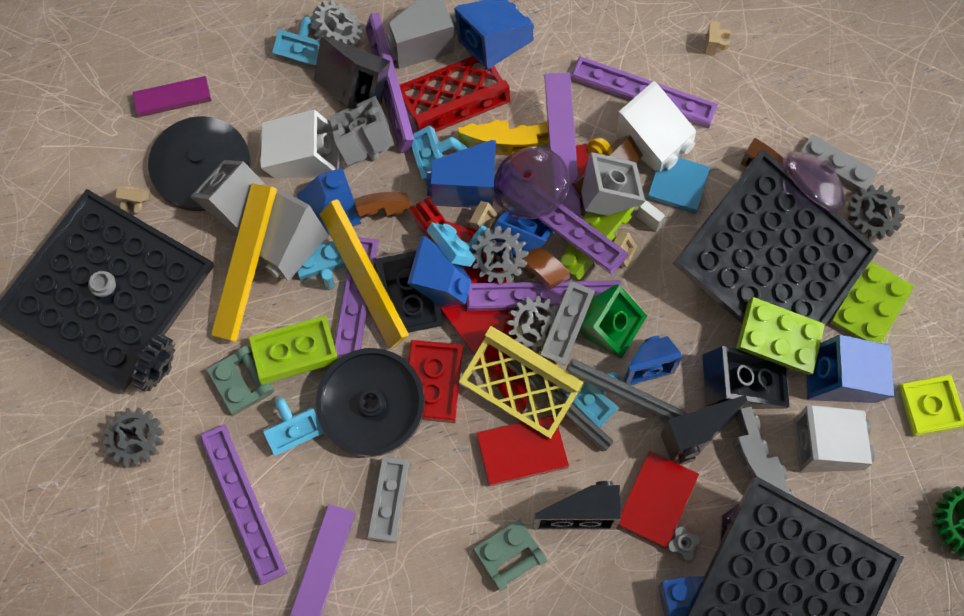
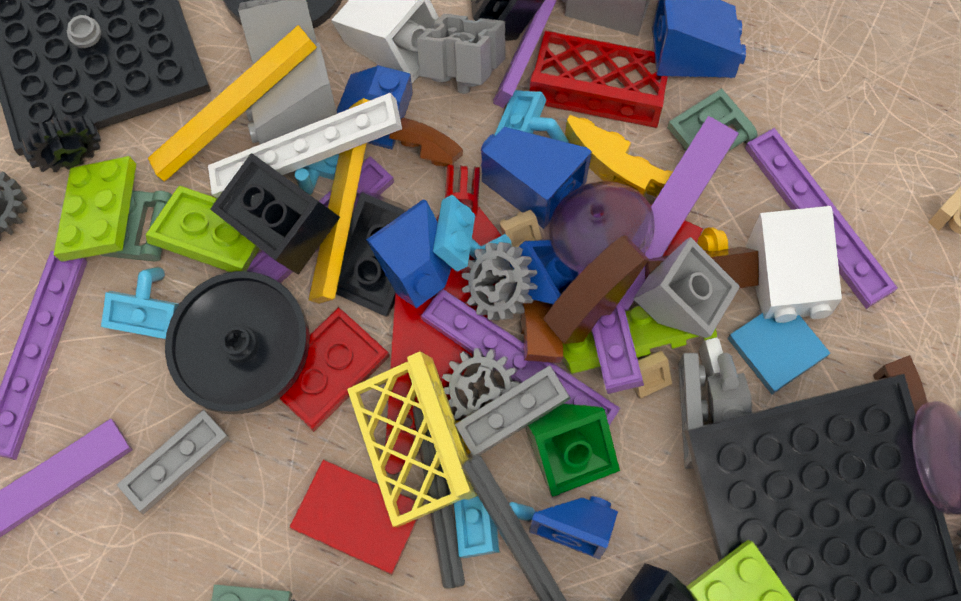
camera: 40 degrees right, 0 degrees up
(209, 388) = (95, 209): none -> lime plate
(316, 257) = (315, 141): none -> white plate
(332, 308) = (274, 214): none -> black slope
(533, 84) = (719, 107): none -> sand green plate
(562, 220) = (596, 291): none -> reddish brown slope
(659, 250) = (693, 409): none -> light grey plate
(676, 228) = (728, 392): none -> light grey brick

